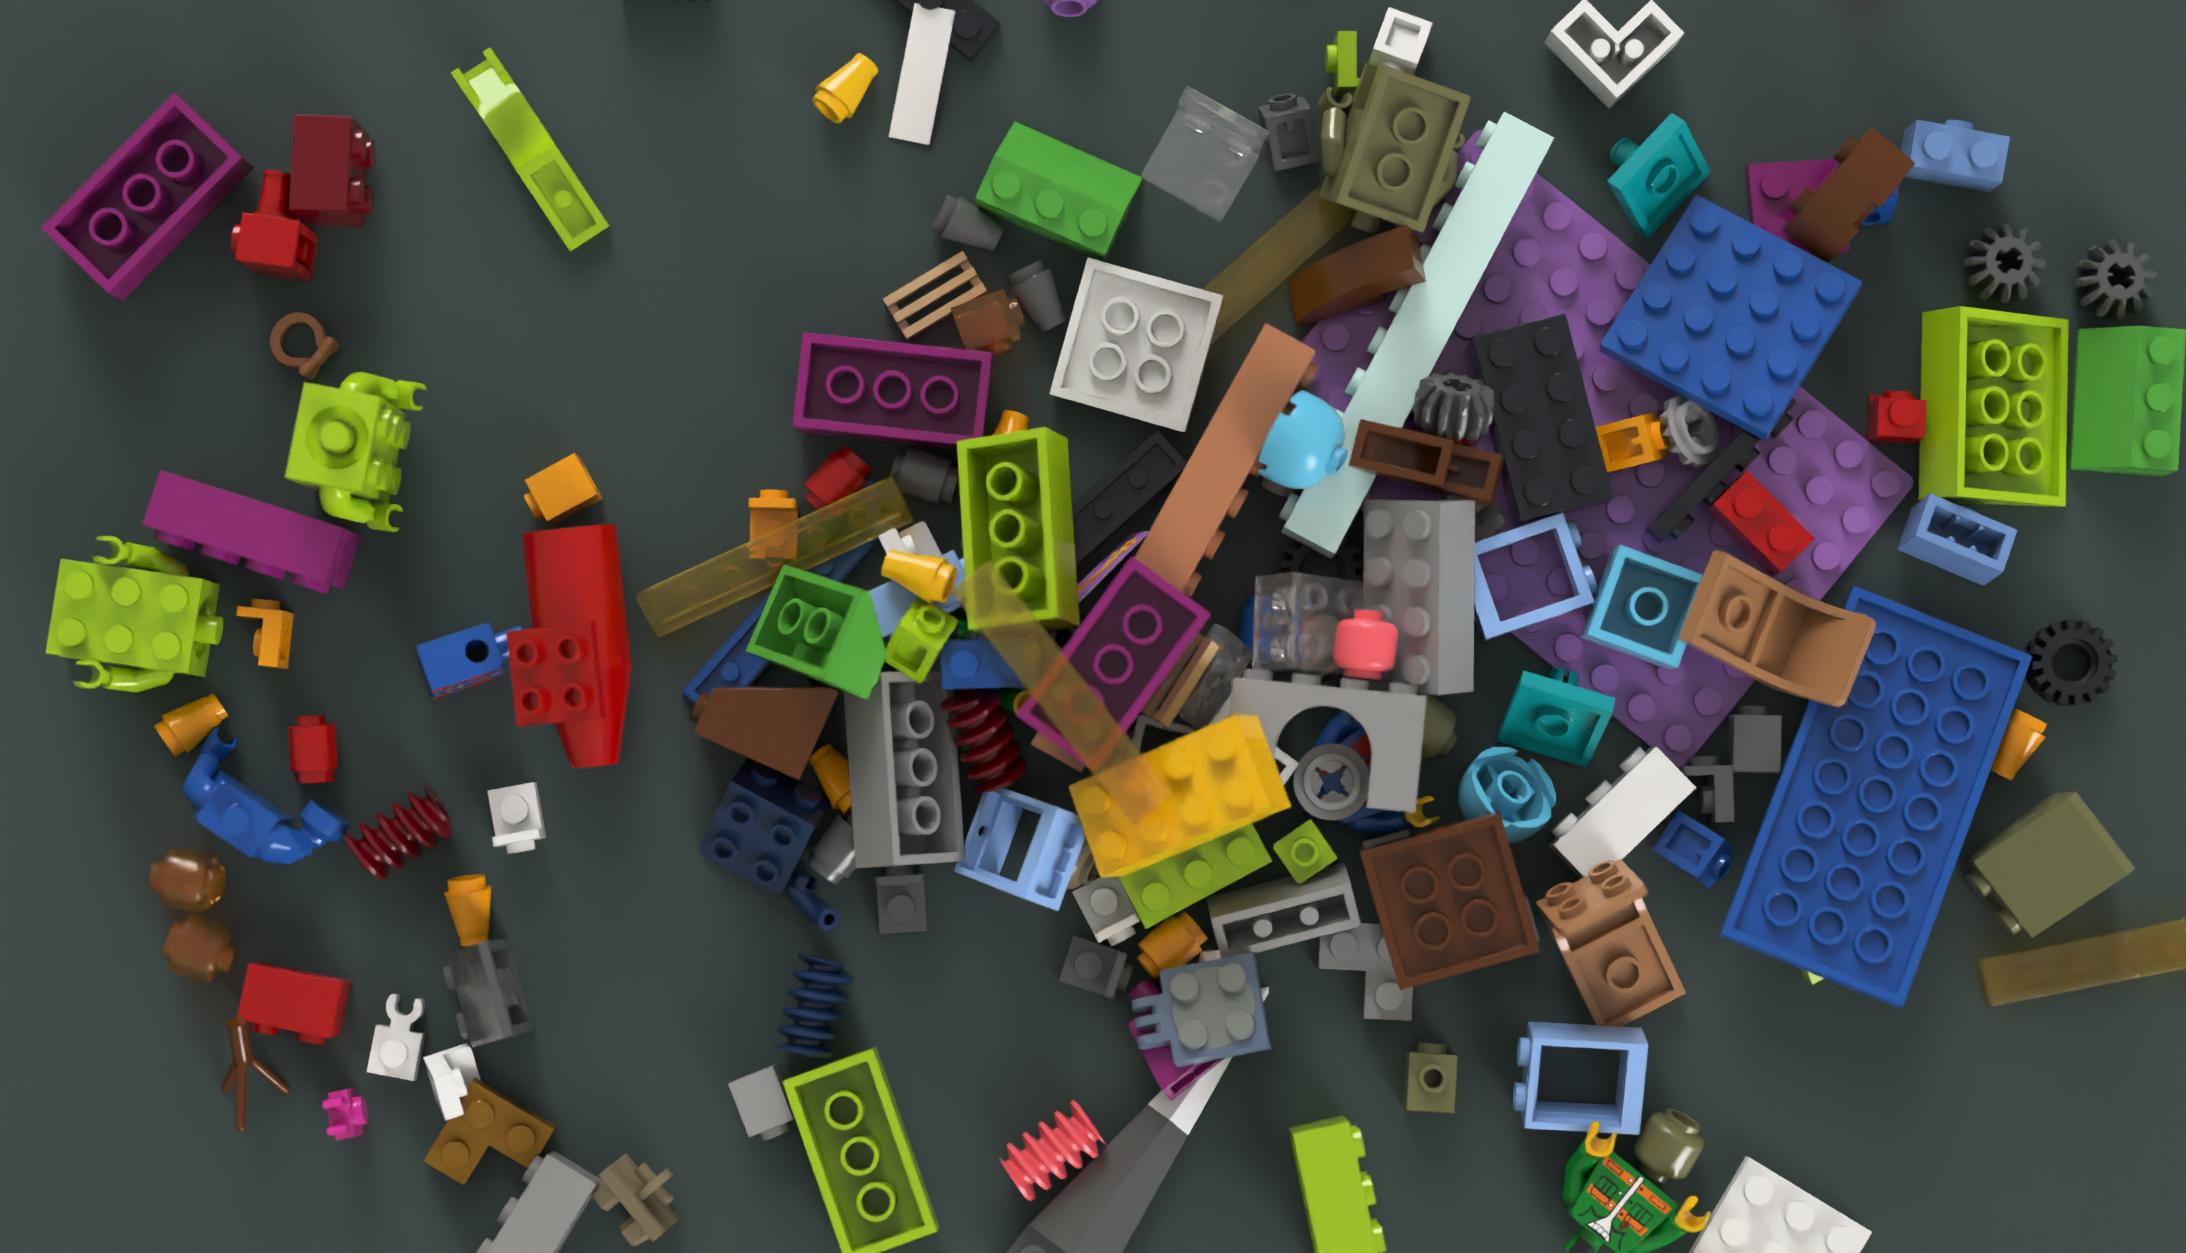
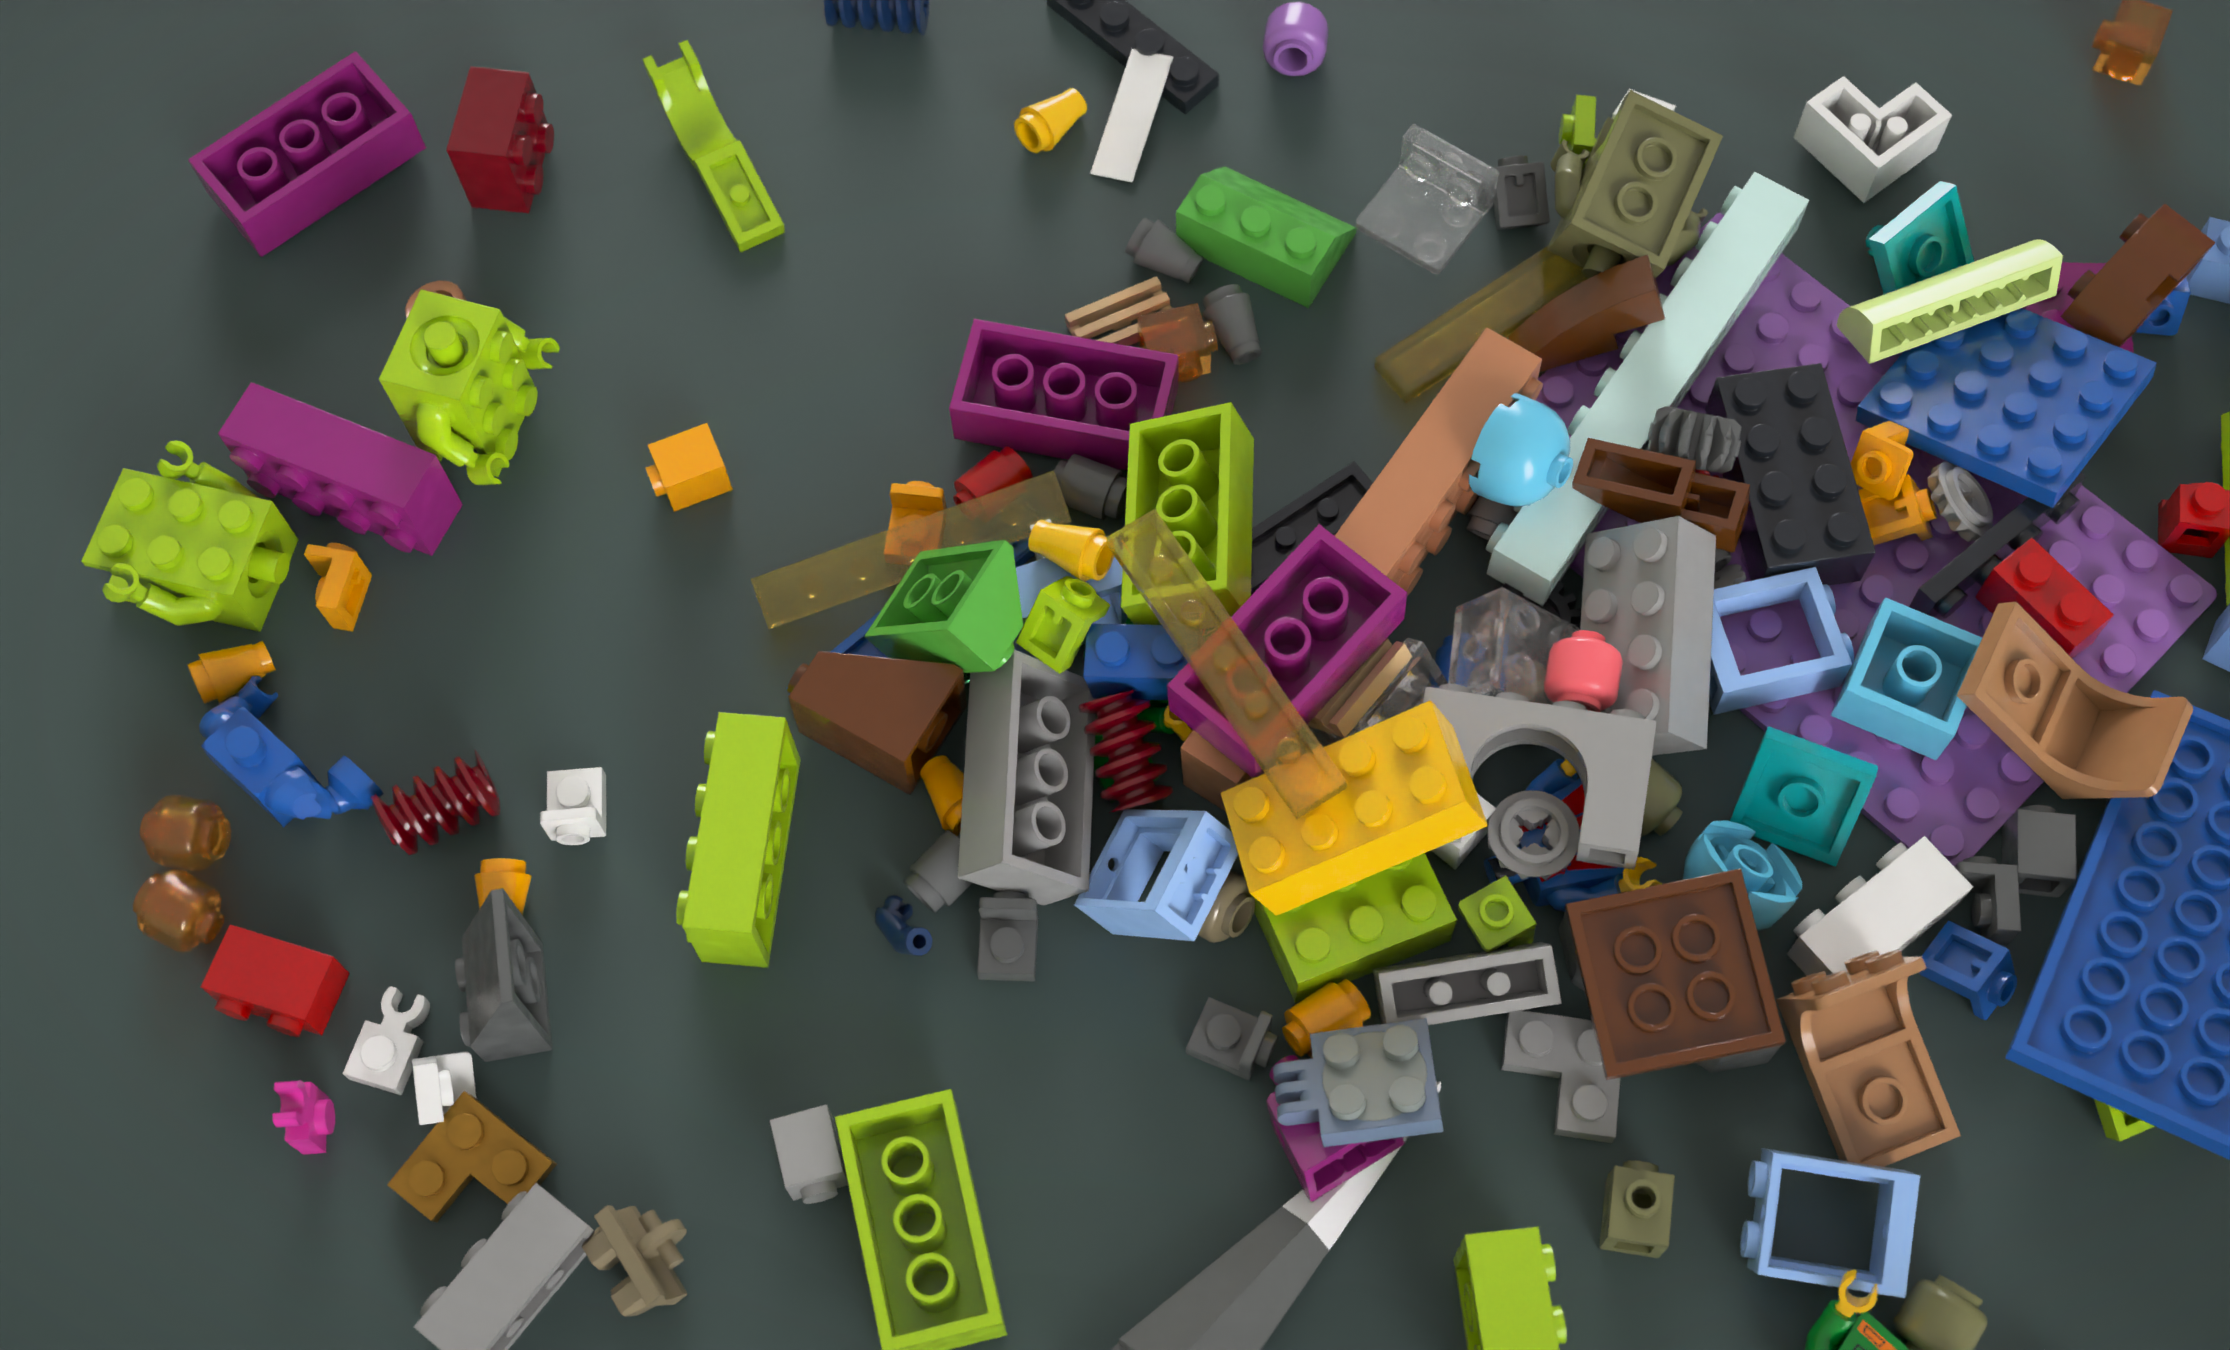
camera: 10 degrees right, 20 degrees down
(241, 1060) = (199, 1033): reddish brown plant -> none
(272, 238) = (430, 196): red brick -> none
(313, 749) = (359, 709): red brick -> none
(448, 667) = (548, 622): blue torso -> none
(578, 653) = (674, 610): red piece -> none
(667, 845) = (740, 840): none -> lime brick
(763, 825) = (856, 838): dark blue bracket -> none
(814, 1006) = (886, 1042): dark blue piece -> none
(1052, 1150) = (1159, 1245): coral piece -> none
(1107, 909) = (1252, 972): white bracket -> none
(1137, 345) = (1338, 375): white plate -> none
(1618, 401) = (1882, 459): none -> light orange bracket
(1682, 230) = (1952, 300): none -> yellowish green brick

